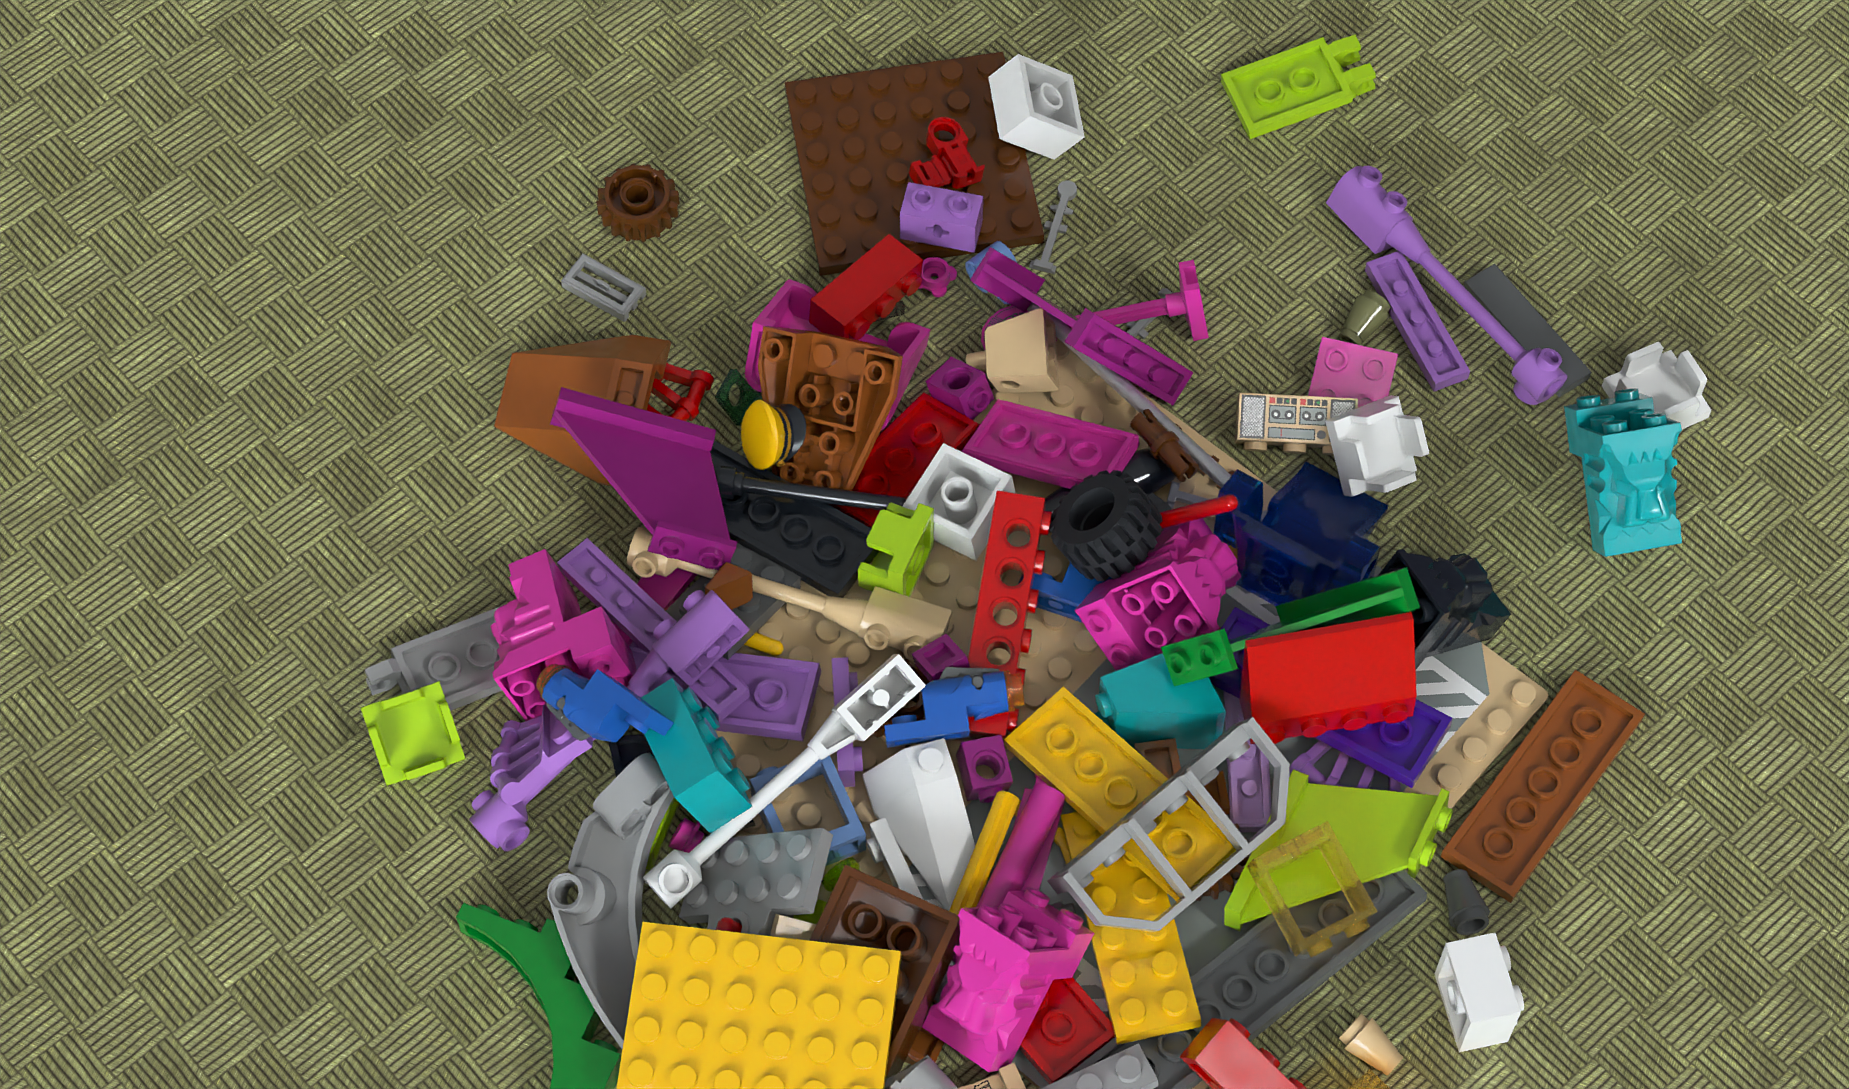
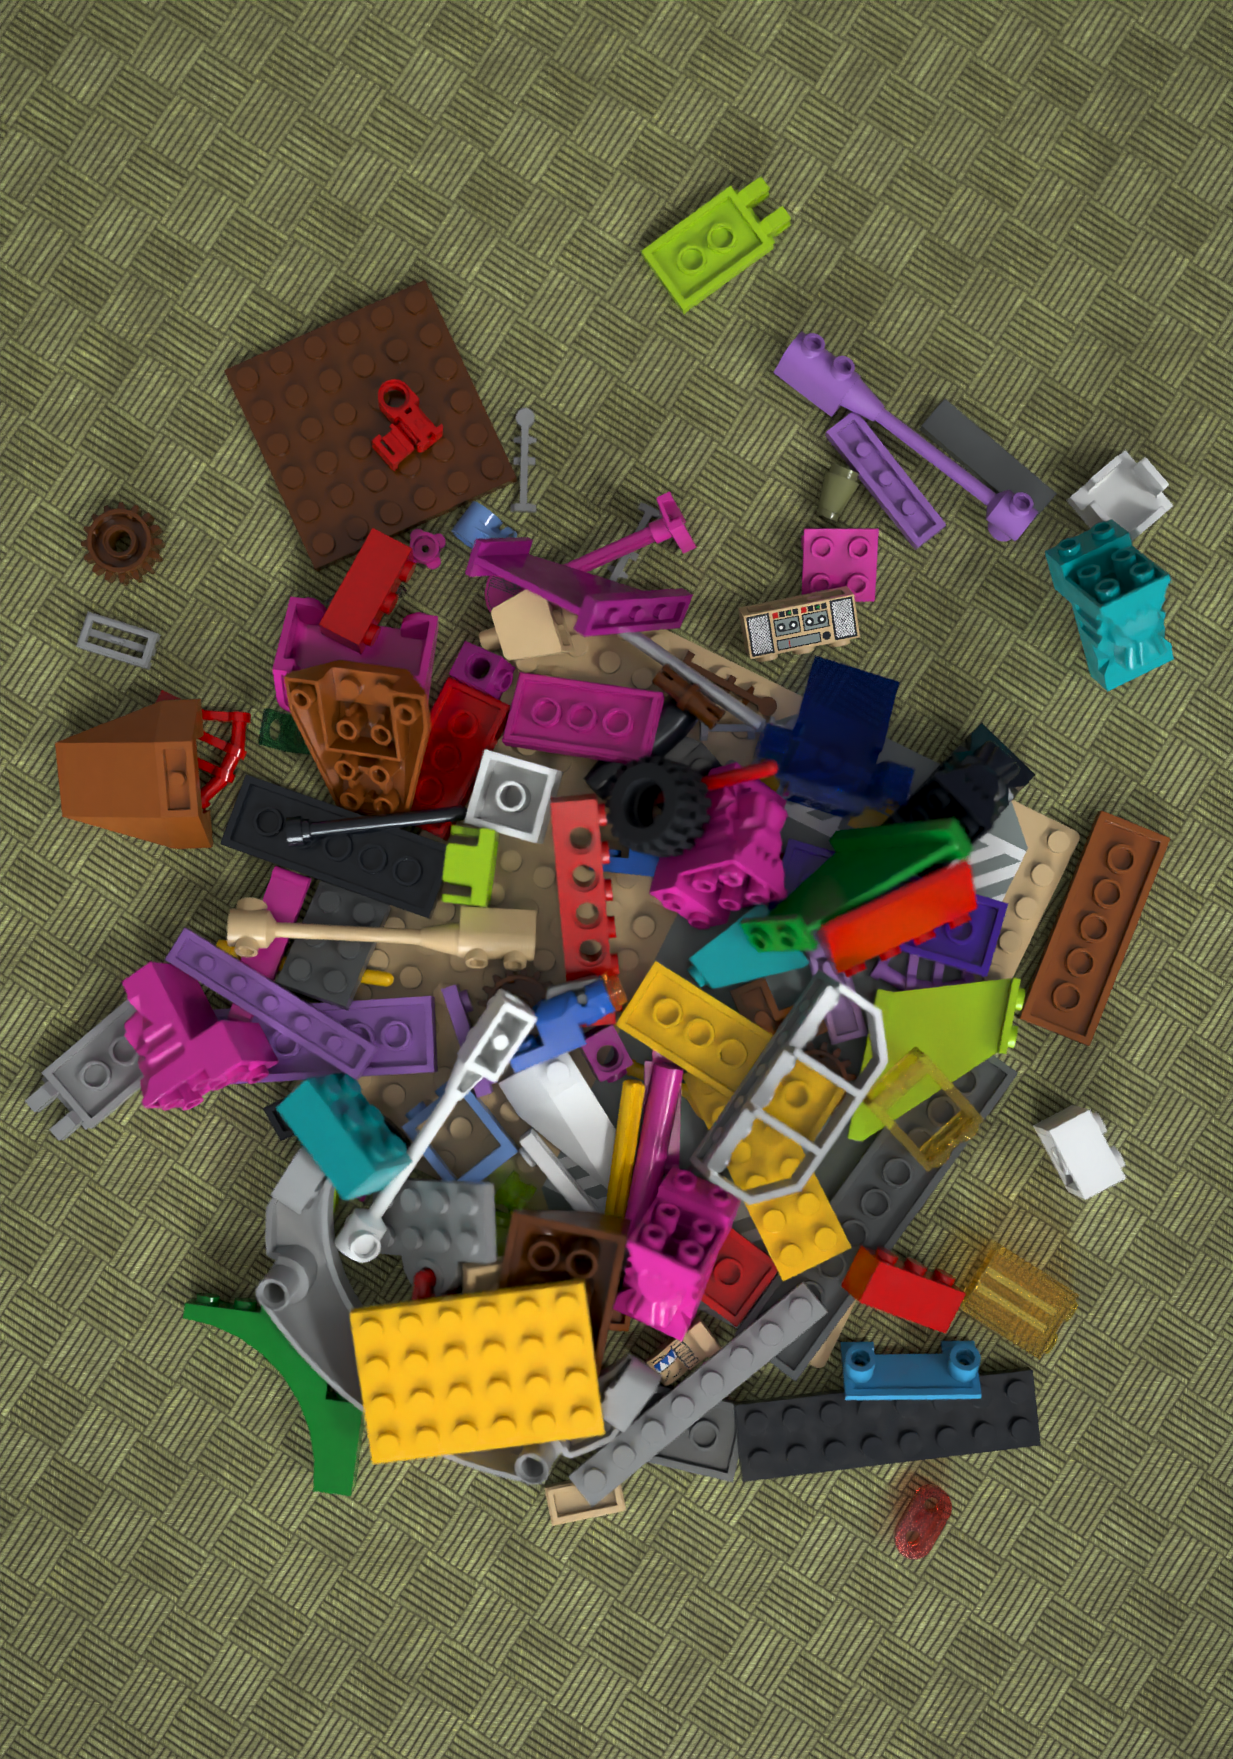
camera: 20 degrees left, 25 degrees up
(413, 733) = (88, 1153): lime panel -> none
(531, 754) = (226, 1141): medium lavender plate -> none
(596, 705) = (249, 1121): blue plate -> none
(658, 470) = (231, 858): magenta piece -> none
(680, 649) = (304, 1038): medium lavender bar -> none
(732, 585) = (328, 953): dark orange slope -> none
(772, 433) = (323, 774): yellow piece -> none
(937, 656) = (540, 972): magenta plate -> none
(941, 217) = (416, 495): medium lavender brick -> none
(1036, 107) = (474, 344): white brick -> none
(1371, 1044) = (994, 1212): tan cone -> none
(1376, 446) = (879, 634): white panel -> none
(1465, 903) = (1047, 1059): dark grey cone -> none

